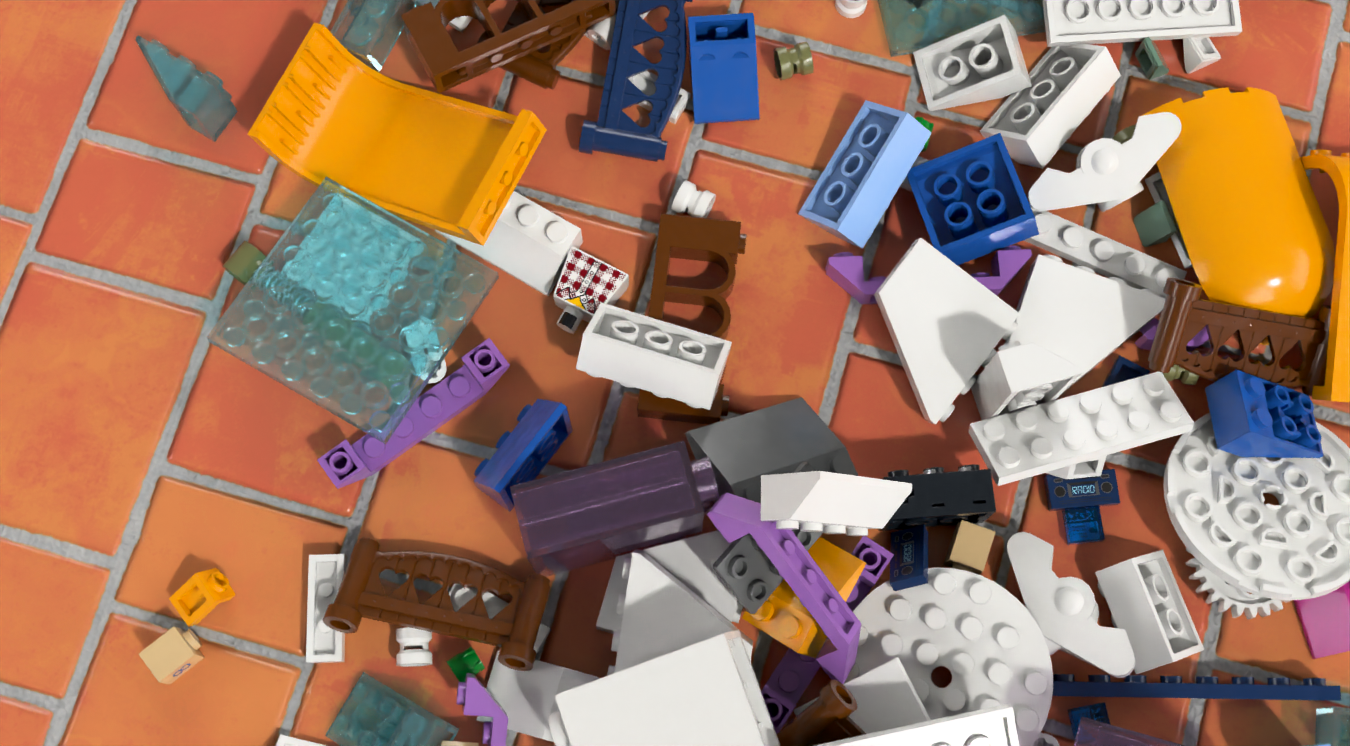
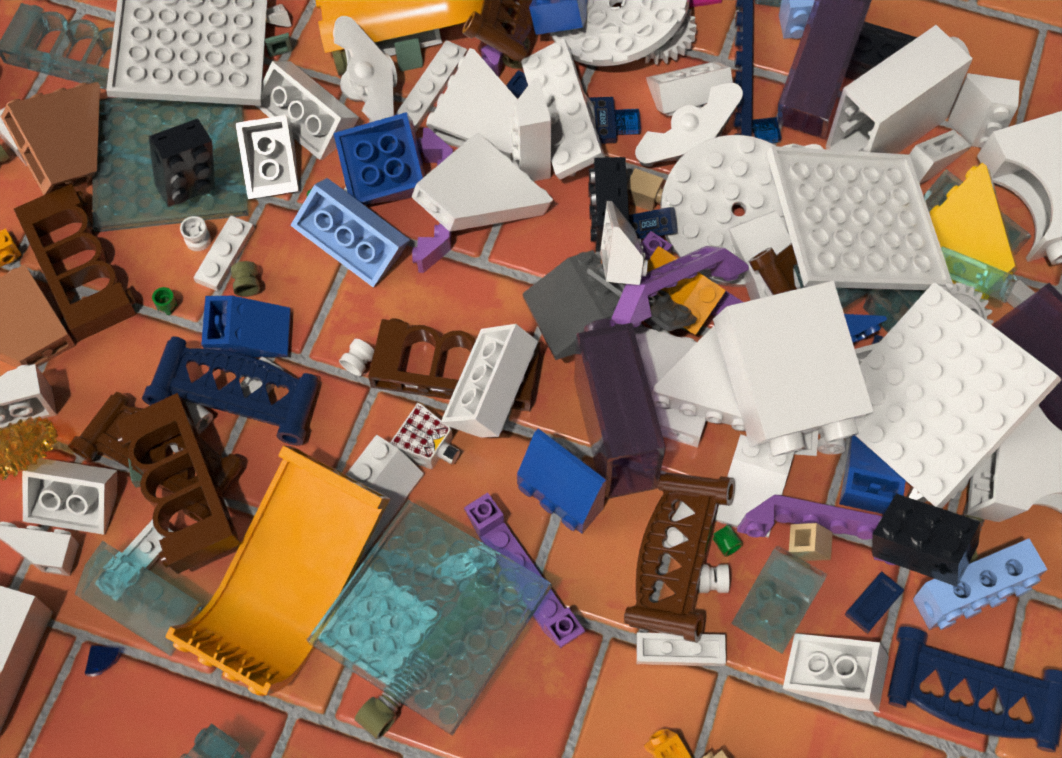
camera: 85 degrees left, 10 degrees down
(832, 34) = (224, 253): none -> white plate

